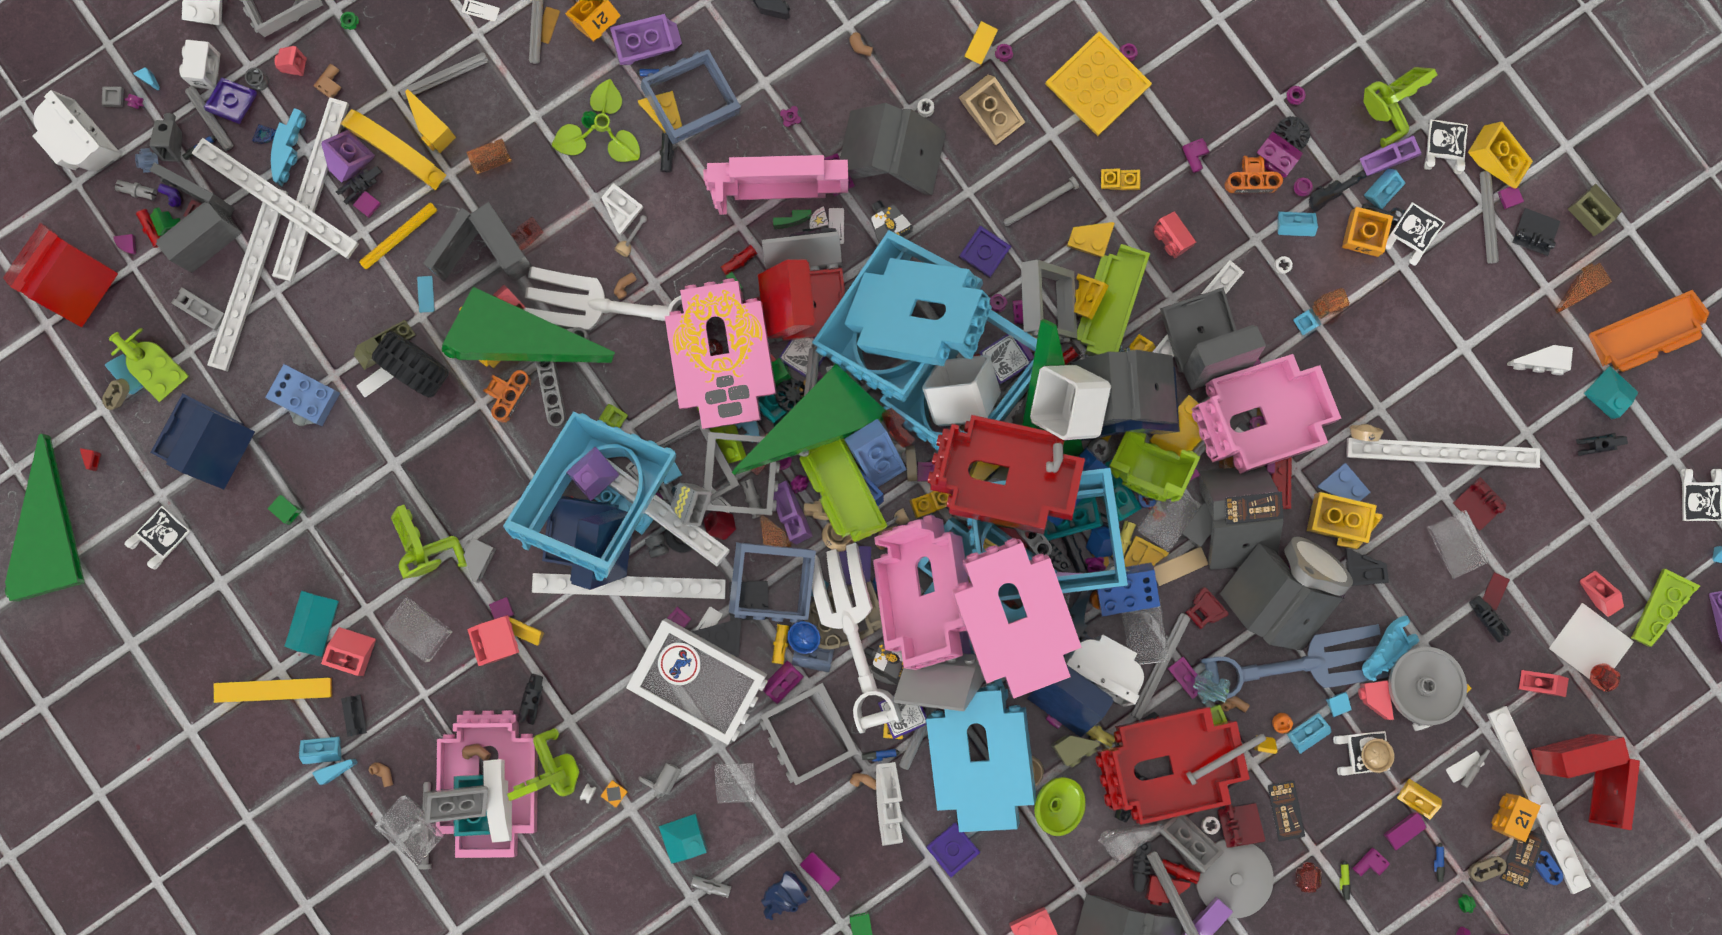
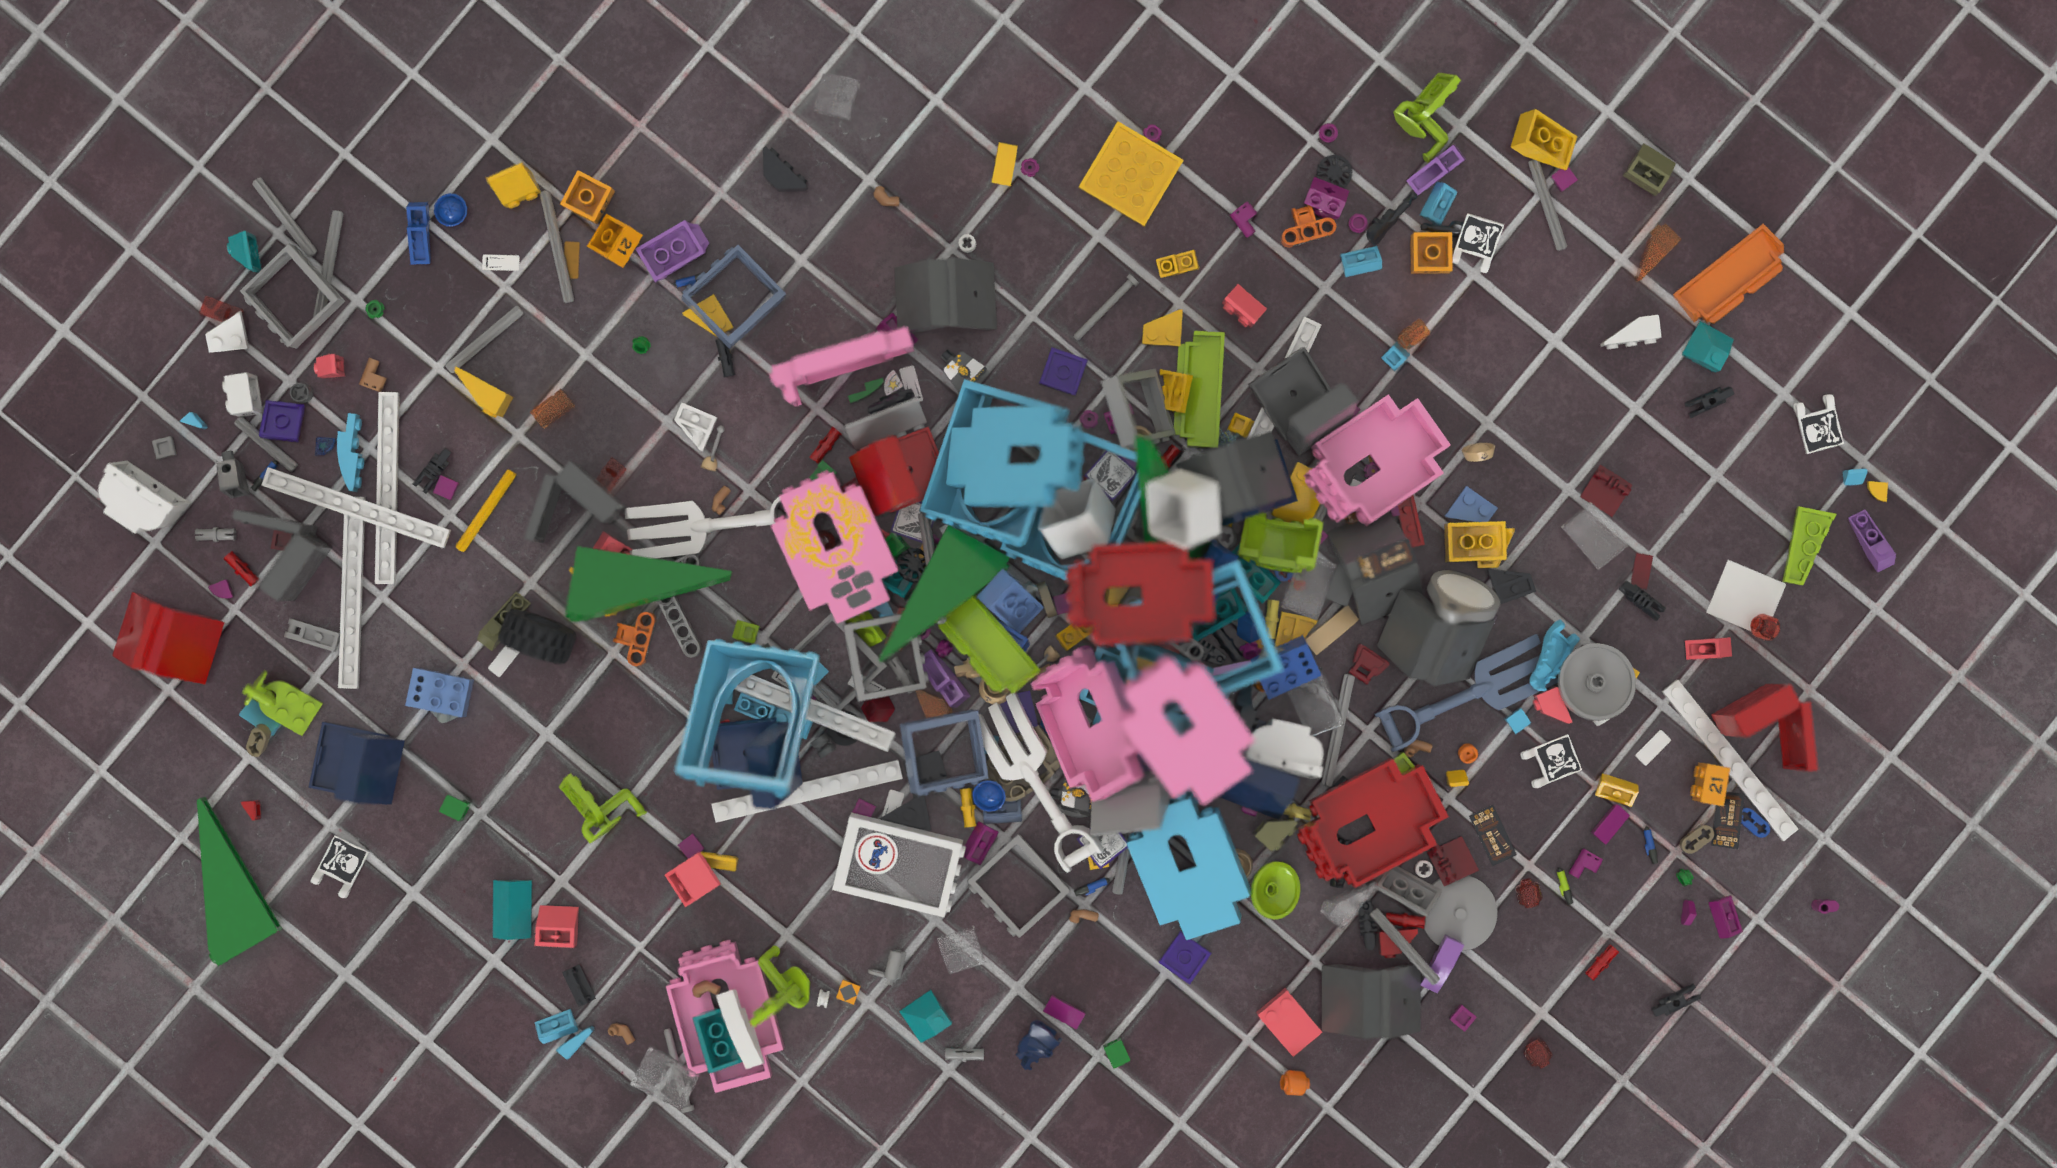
camera: 15 degrees left, 5 degrees up
(134, 101) = (187, 447): magenta plate -> none
(145, 159) = (218, 503): sand blue gear -> none
(163, 221) = (254, 560): green panel -> none
(172, 193) = (254, 530): dark purple arm -> none
(272, 690) = (494, 982): yellow tile -> none
(345, 155) = (411, 445): medium lavender slope -> none
(393, 147) = (456, 426): yellow arch -> none
(417, 630) = (615, 887): clear slope -> none
(425, 294) = (529, 560): medium azure sticker -> none
(455, 803) = (702, 1042): light grey slope -> none
(477, 558) = (654, 803): light grey slope -> none
(531, 699) = (744, 924): black hinge -> none
(592, 473) = (743, 694): medium lavender slope -> none
(605, 99) = (680, 363): lime plant -> none
(690, 503) = (844, 698): light grey torso -> none
(790, 121) = (837, 293): magenta plate -> none
(888, 803) = (1112, 931): white slope -> none
(893, 422) = (1020, 569): clear red slope -> none
(992, 109) = (1033, 228): tan slope -> none
(1057, 458) = (1185, 567): light grey arm -> none
(1184, 676) = (1366, 734): magenta plate -> none
(1211, 690) = (1389, 742): clear light blue hips -> none
(1225, 758) = (1394, 829): light grey bar -> none
(1285, 260) = (1356, 312): white bush -> none
(1309, 733) = (1496, 755): medium azure slope -> none
(1377, 755) = (1566, 760): tan hat -> none
(1444, 453) = (1560, 450): white plate -> none
(1448, 142) = (1488, 139): flag -> none
(1474, 770) = (1662, 748): light grey piece -> none
(1536, 232) = (1597, 207): black hinge -> none
(1602, 593) = (1744, 546): coral slope -> none

